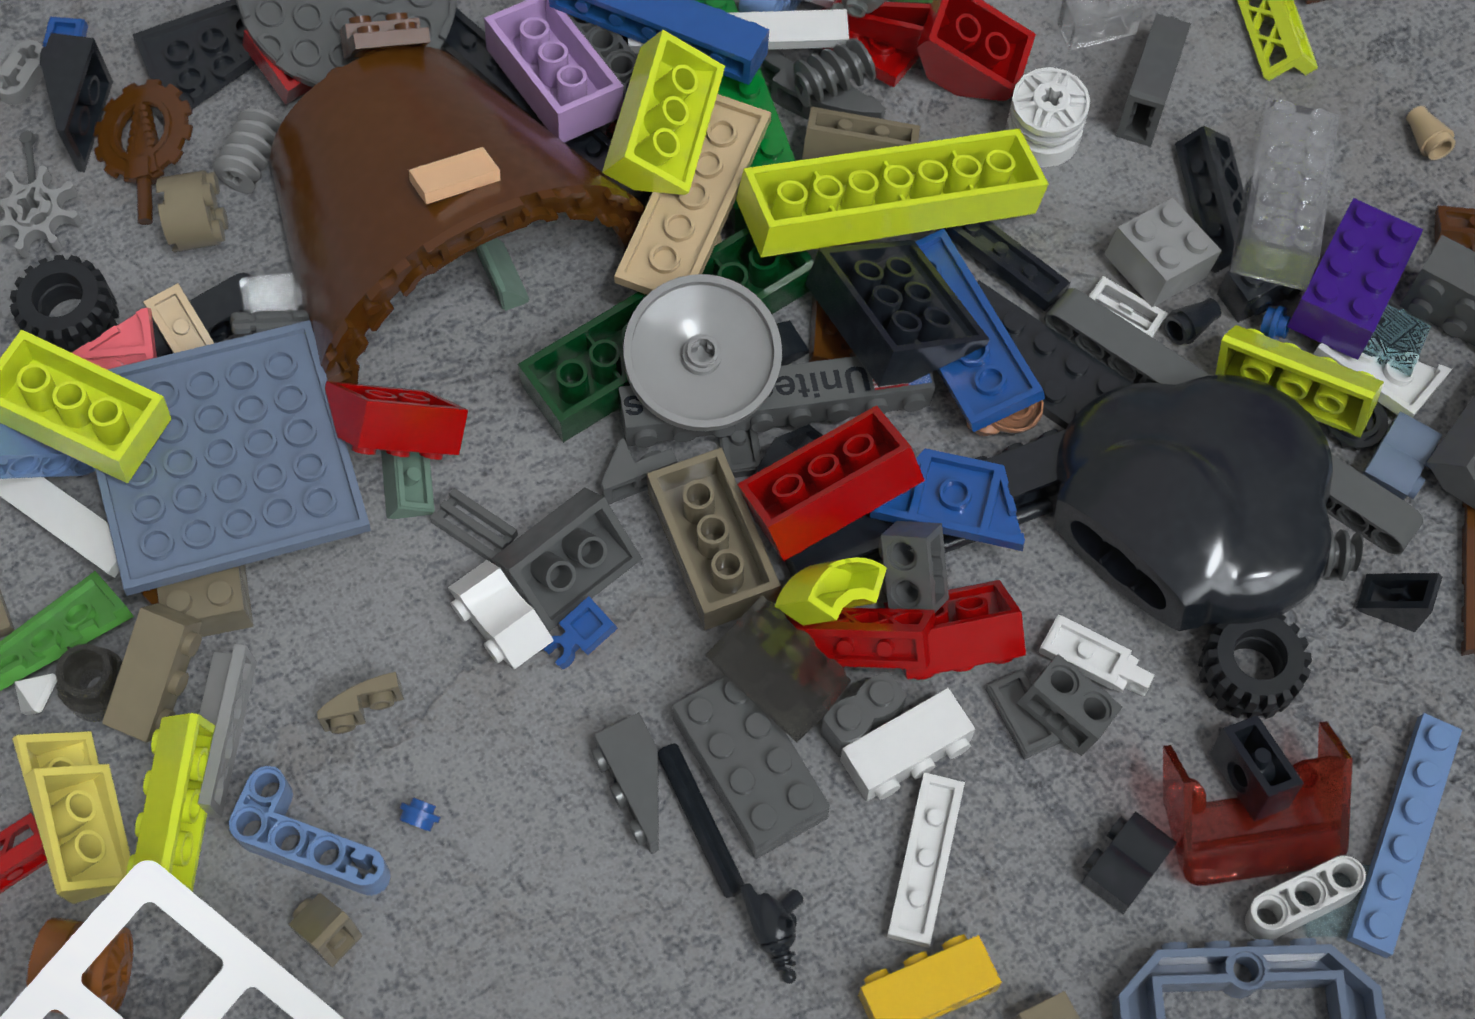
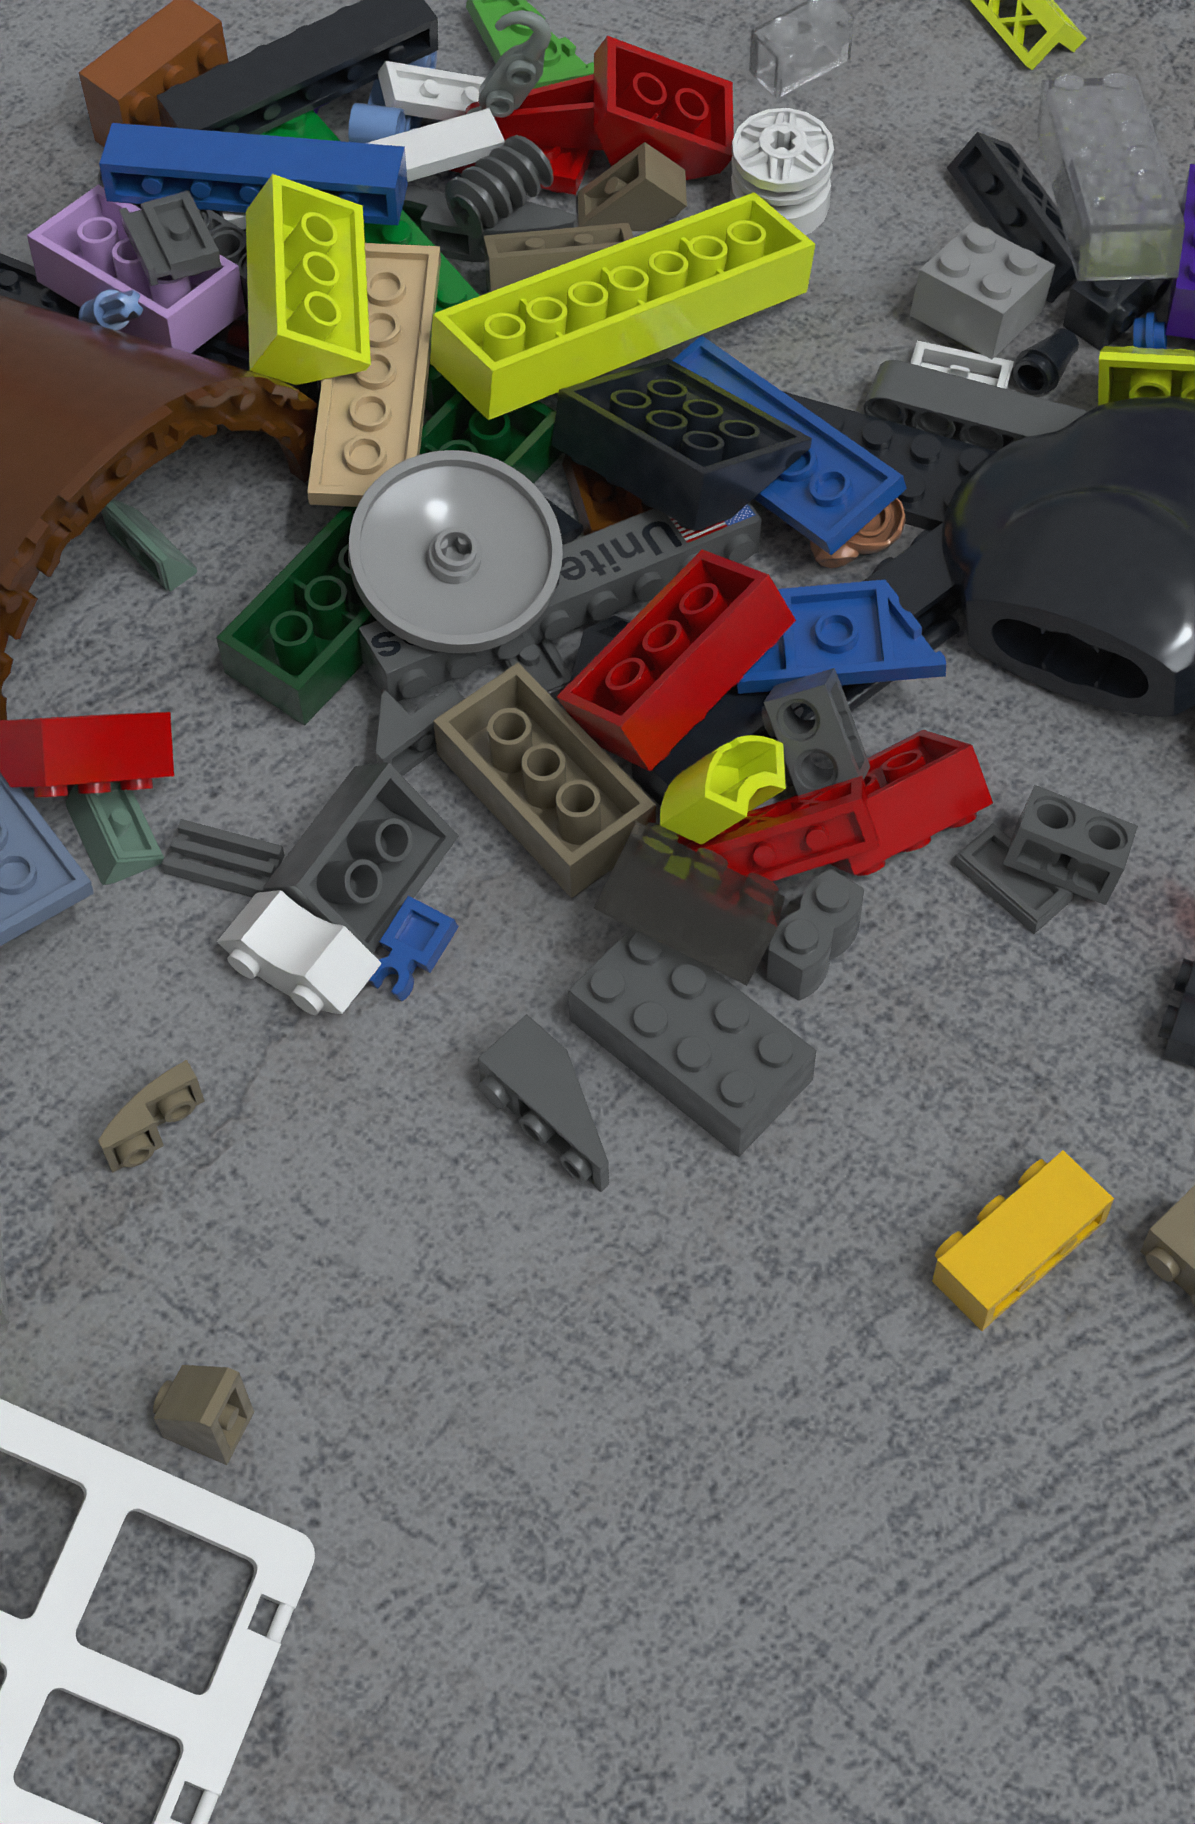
camera: 15 degrees left, 5 degrees down
(312, 843) = (149, 1307): medium blue beam -> none
(419, 814) = (278, 1232): blue plate -> none
(454, 175) = (69, 401): light nougat tile -> none
(522, 94) = (112, 309): none -> medium blue axle
(581, 52) = (170, 238): none -> dark grey plate
(701, 820) = (654, 1129): black axle -> none
(774, 926) = (796, 1226): black piece -> none
(908, 746) = (884, 956): white brick -> none
(926, 860) = (959, 1088): white plate -> none
(935, 100) = (636, 190): none -> dark tan slope
(1010, 262) = (797, 354): black plate -> none
(1096, 656) = (1083, 778): white hinge -> none
(1153, 80) = (895, 101): dark grey slope -> none

